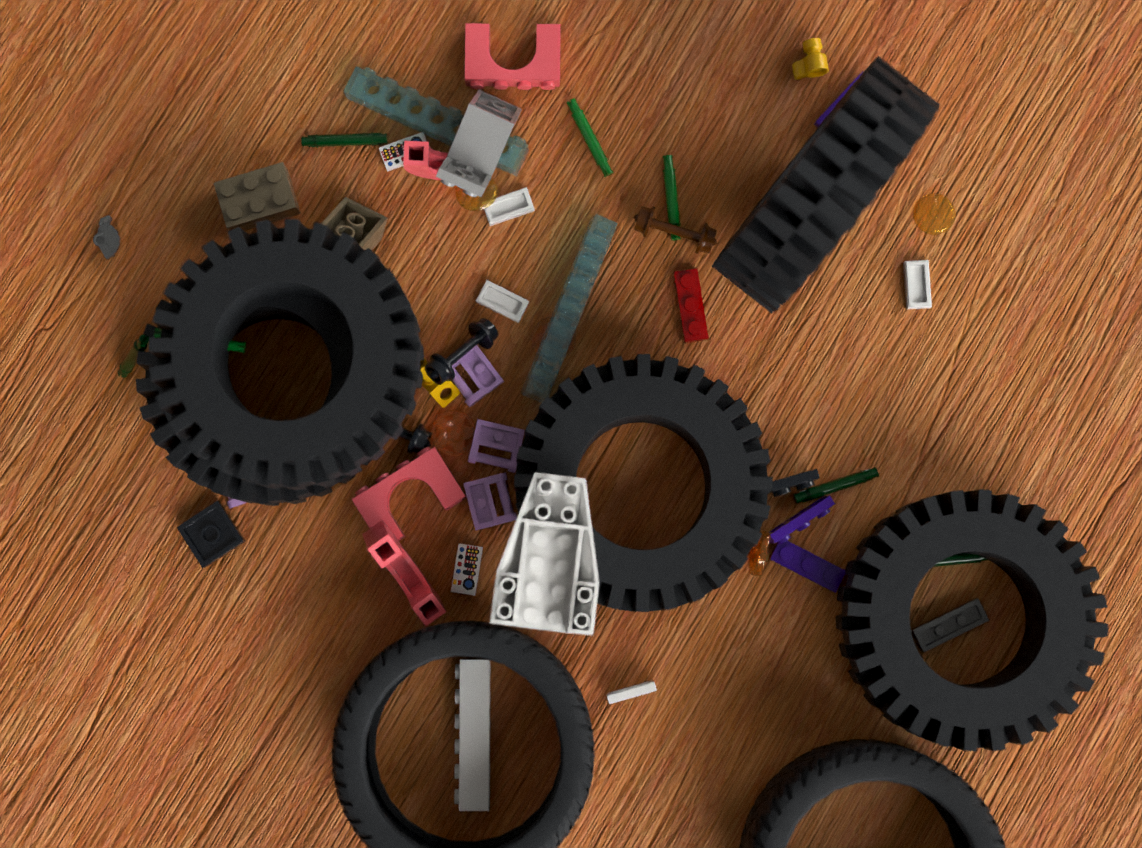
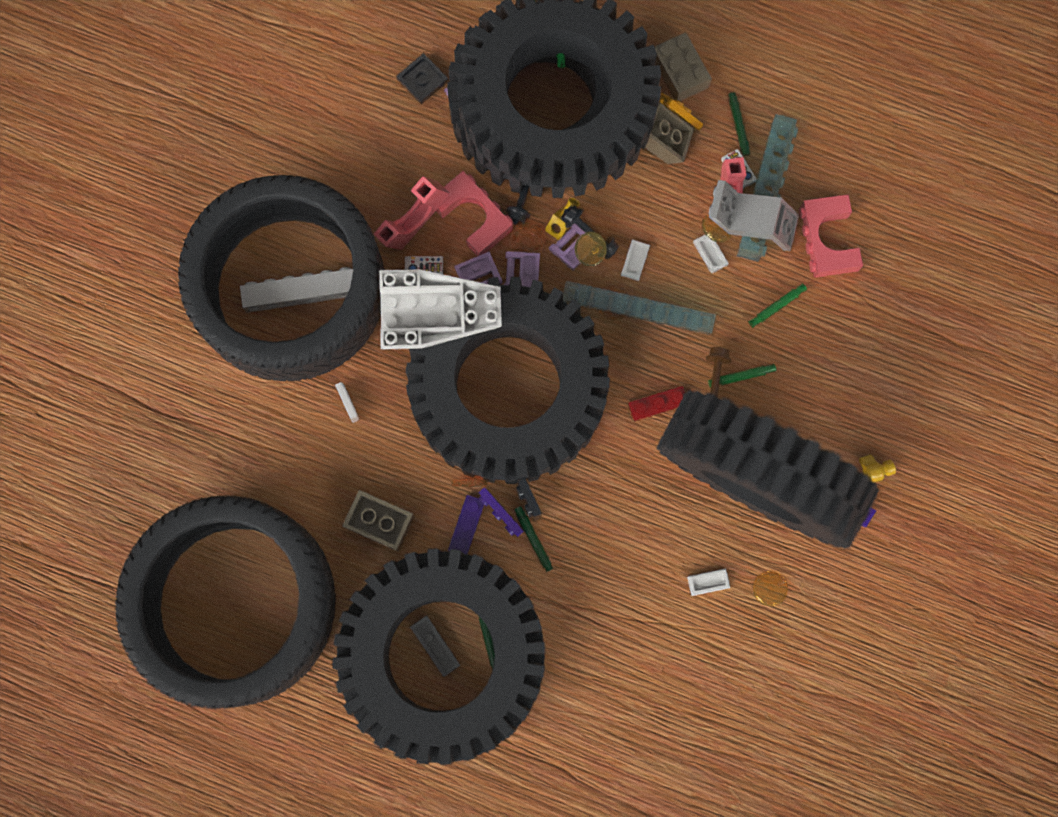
camera: 80 degrees right, 5 degrees down
(321, 208) = (680, 110): none -> light orange wing
(484, 354) = (590, 249): none -> clear yellow piece
(790, 672) = (378, 520): none -> dark tan brick

